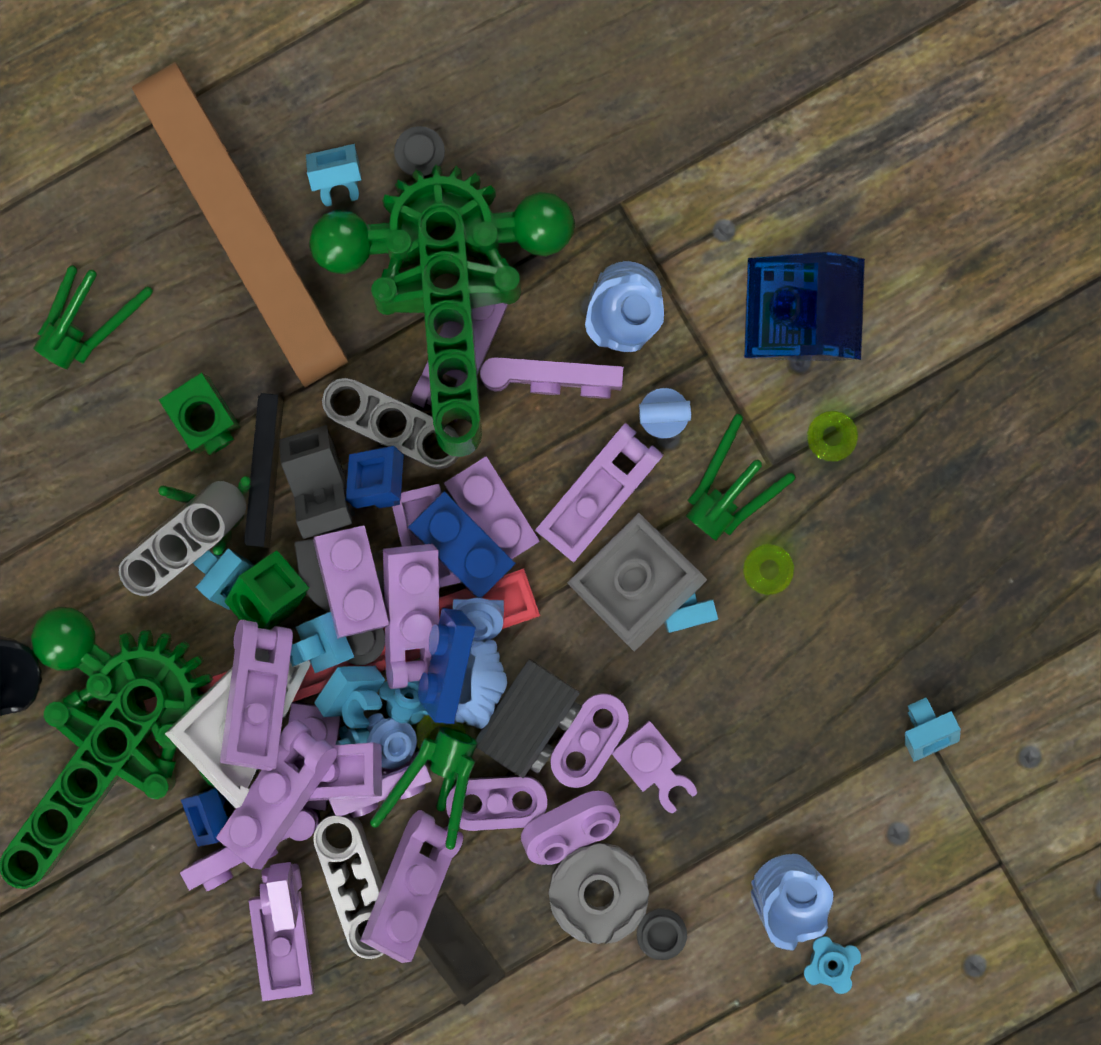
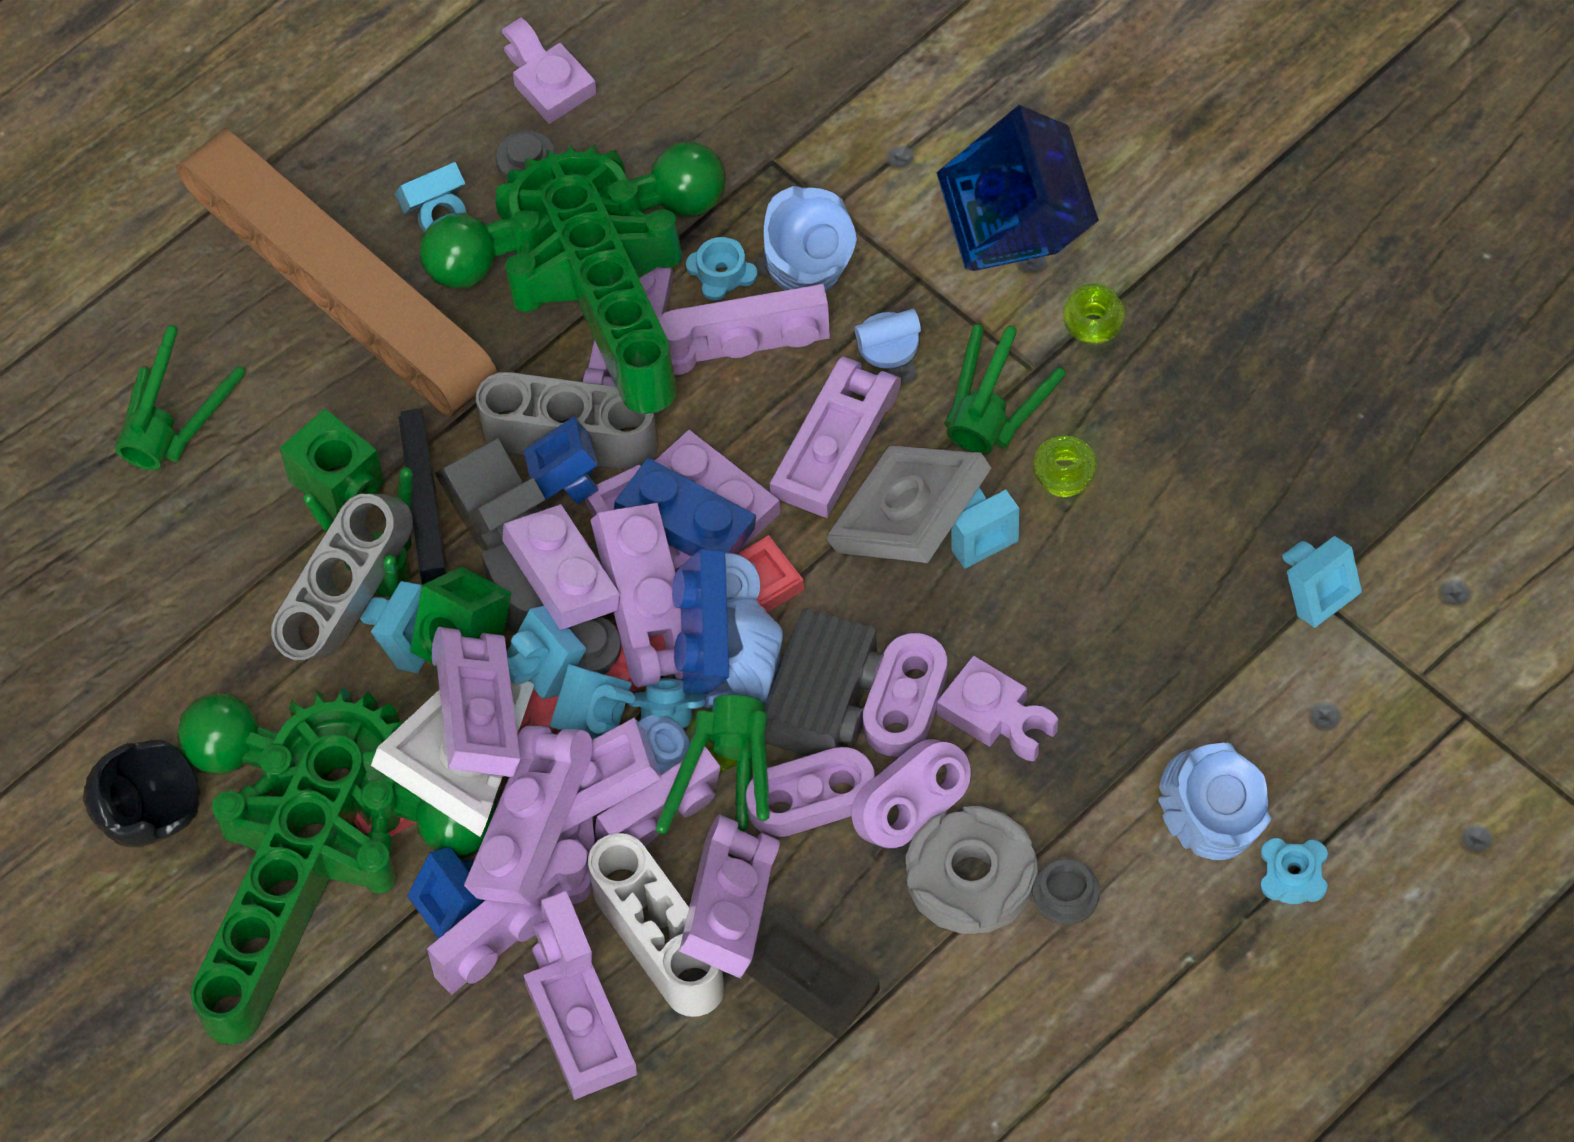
camera: 10 degrees left, 30 degrees down
(458, 73) = (549, 78): none -> lavender plate
(557, 293) = (717, 254): none -> medium azure plate

